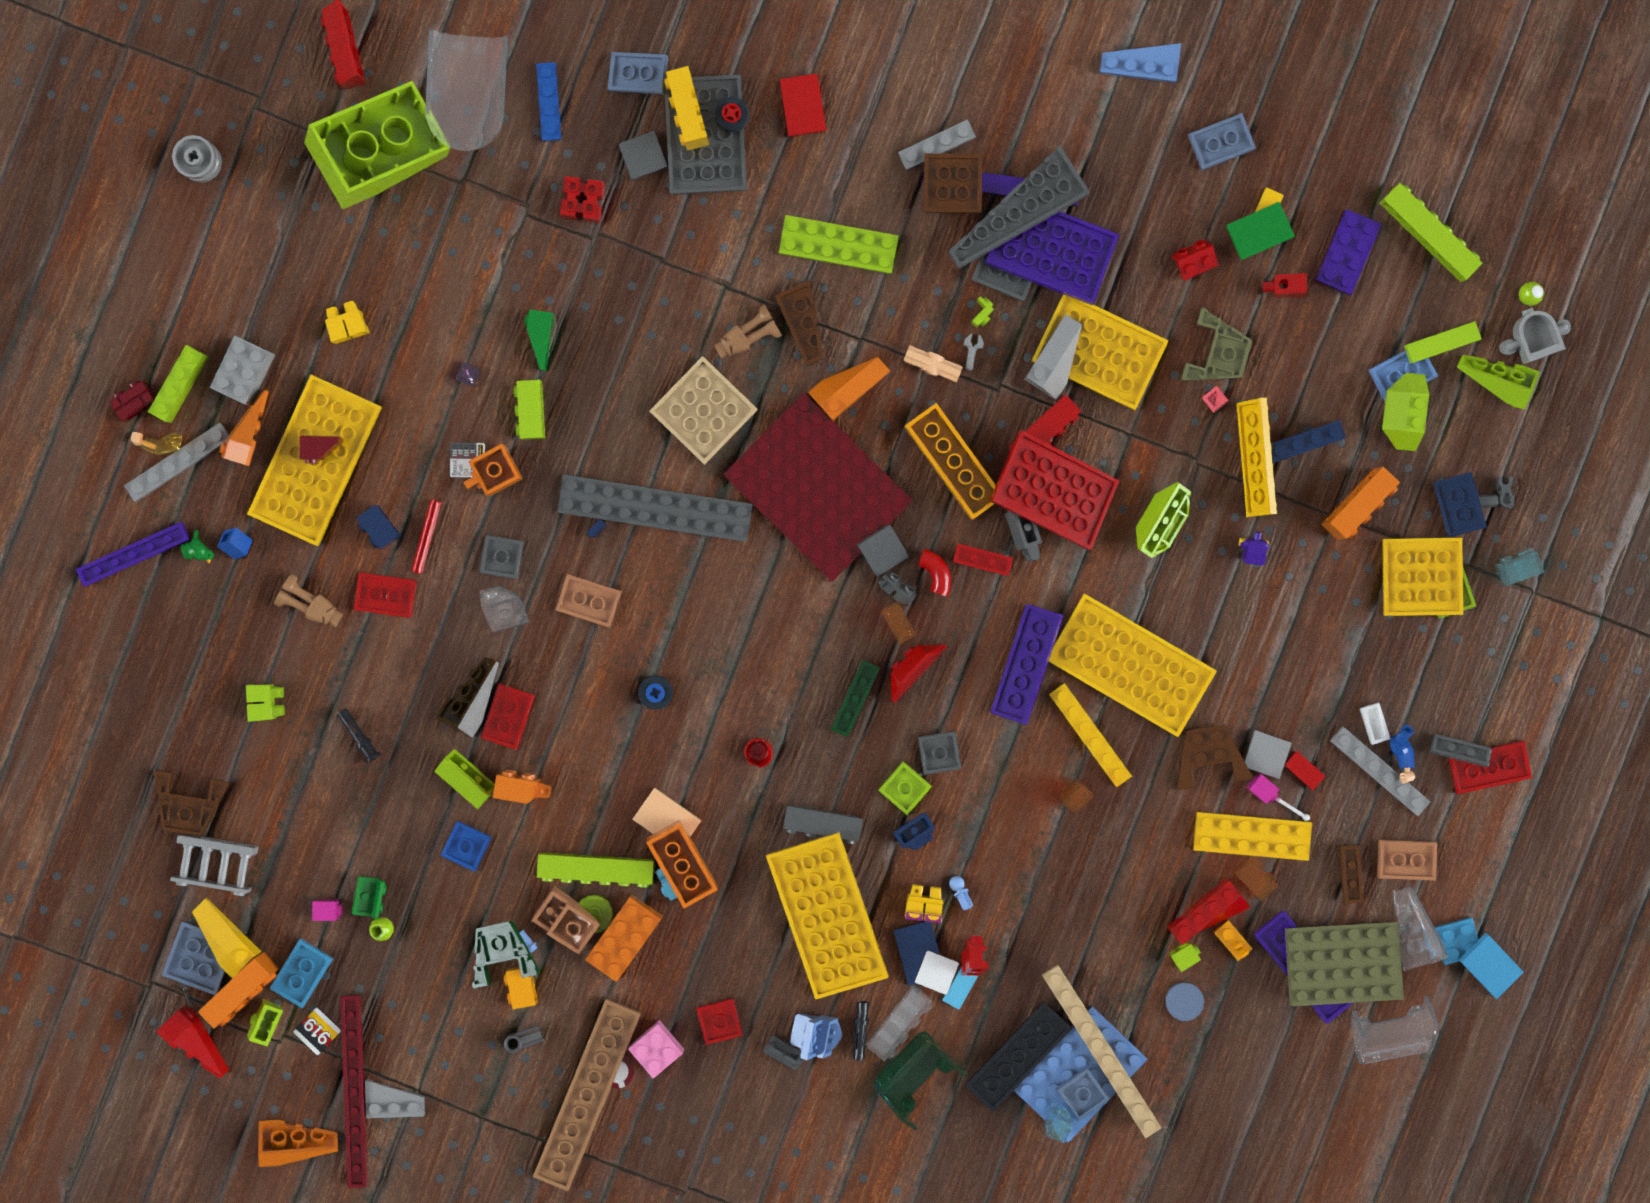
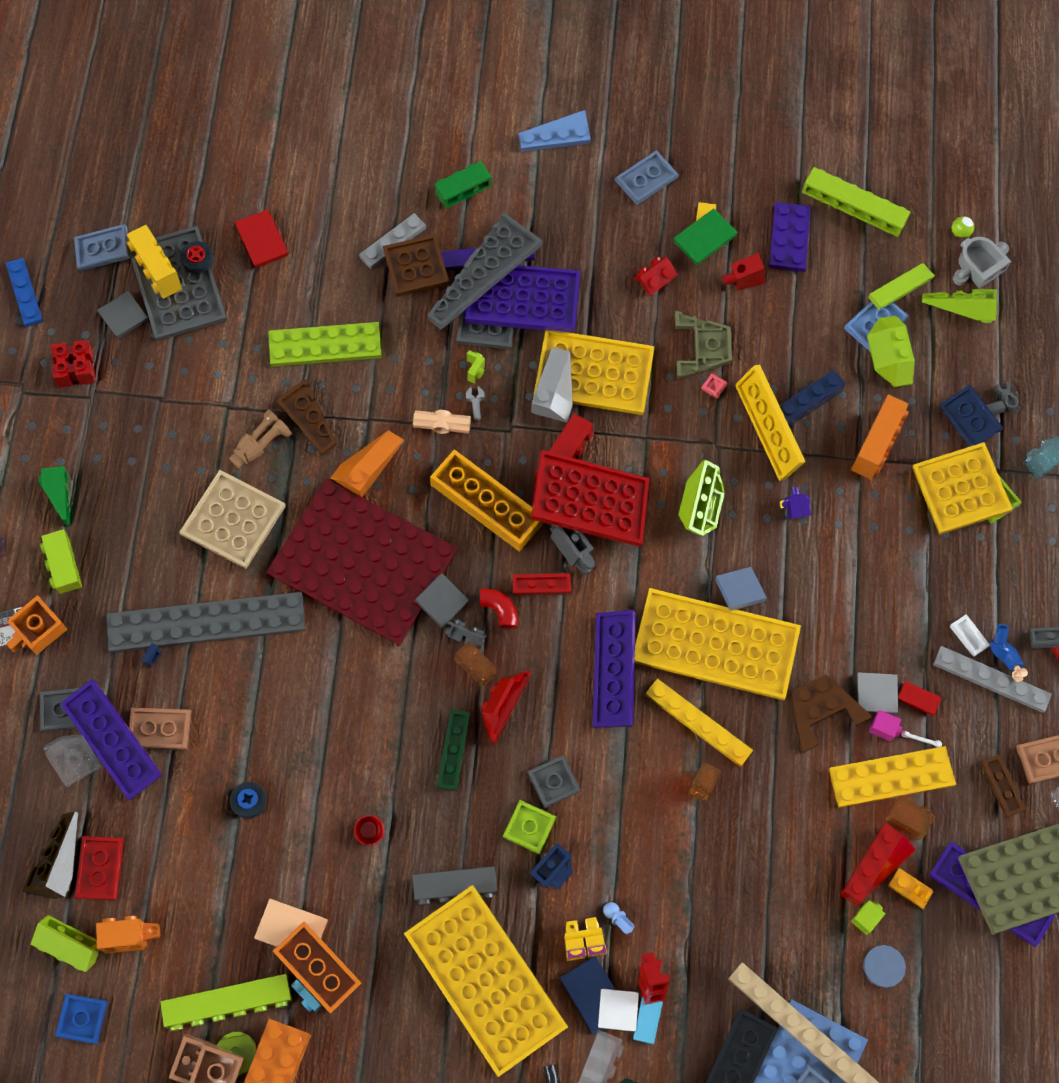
camera: 25 degrees left, 20 degrees down
(542, 601) = (111, 739): none -> dark purple plate
(1027, 99) = (463, 184): none -> green brick
(1171, 618) = (740, 588): none -> sand blue tile

